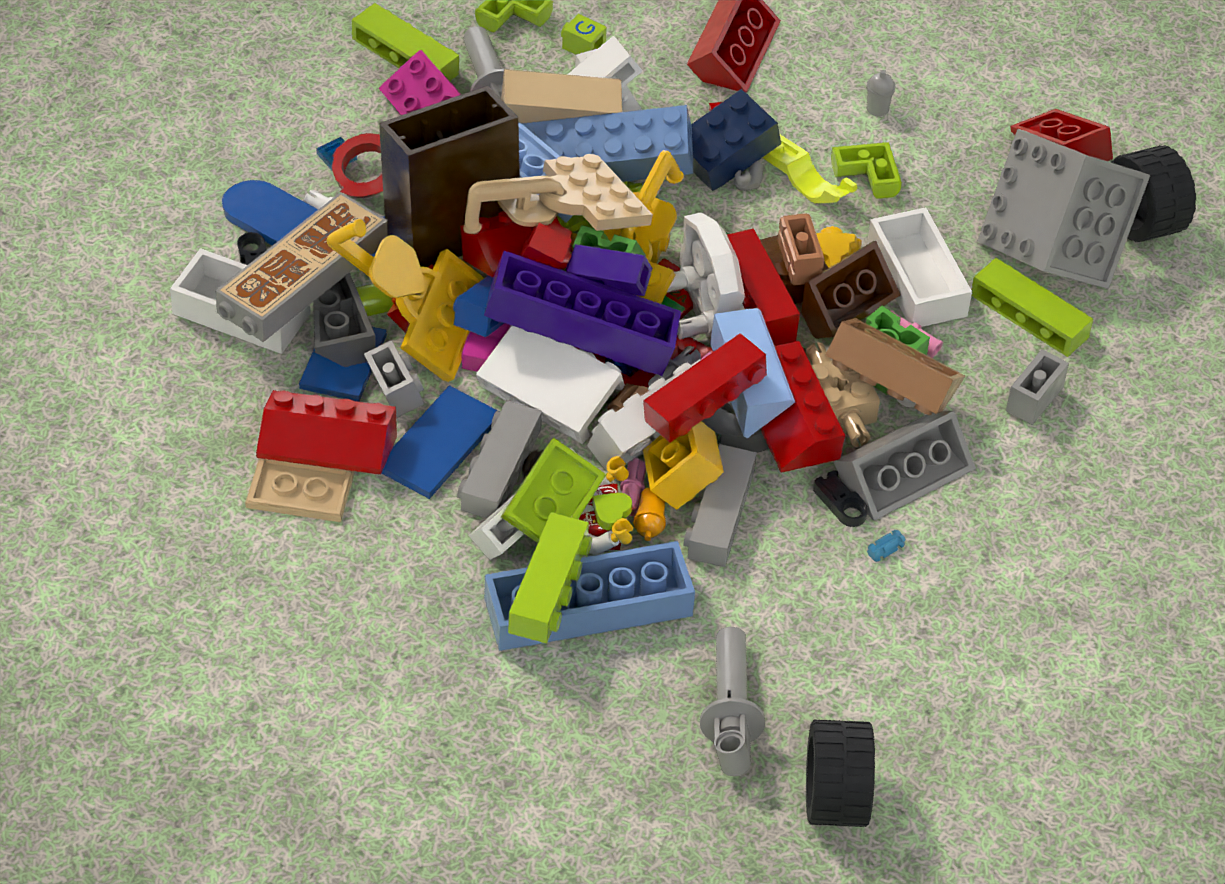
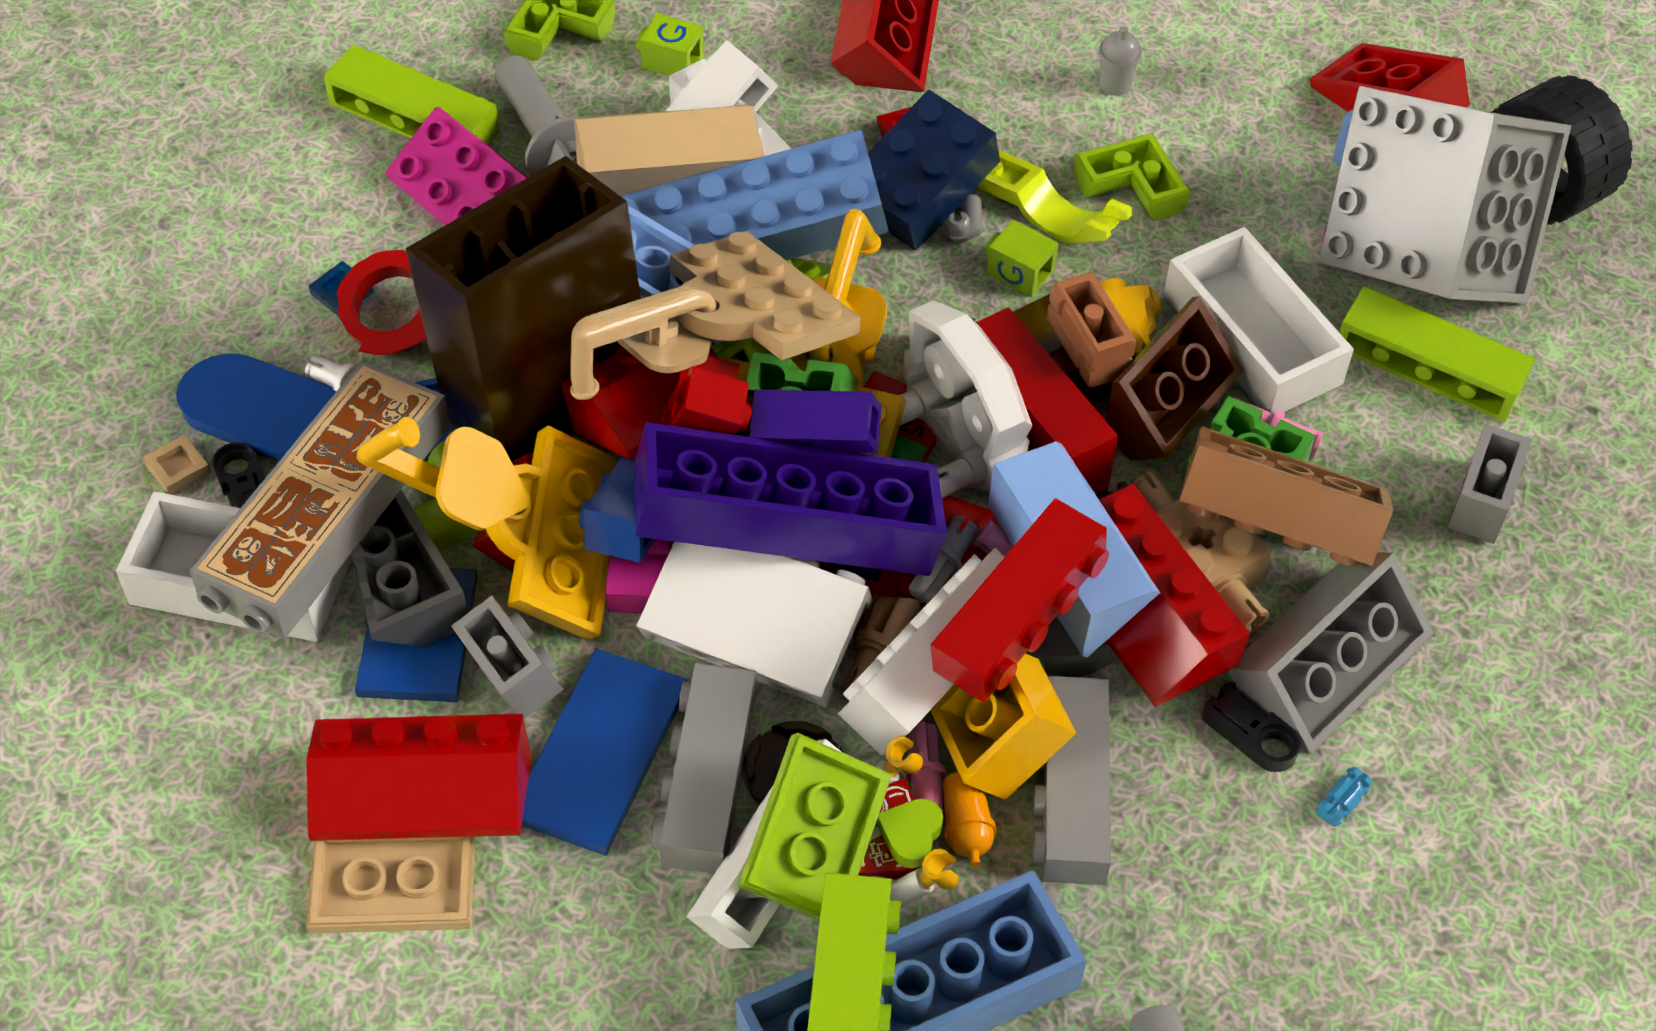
camera: 10 degrees left, 5 degrees up
(215, 239) = (176, 465): none -> tan tile
(776, 202) = (1021, 257): none -> lime brick

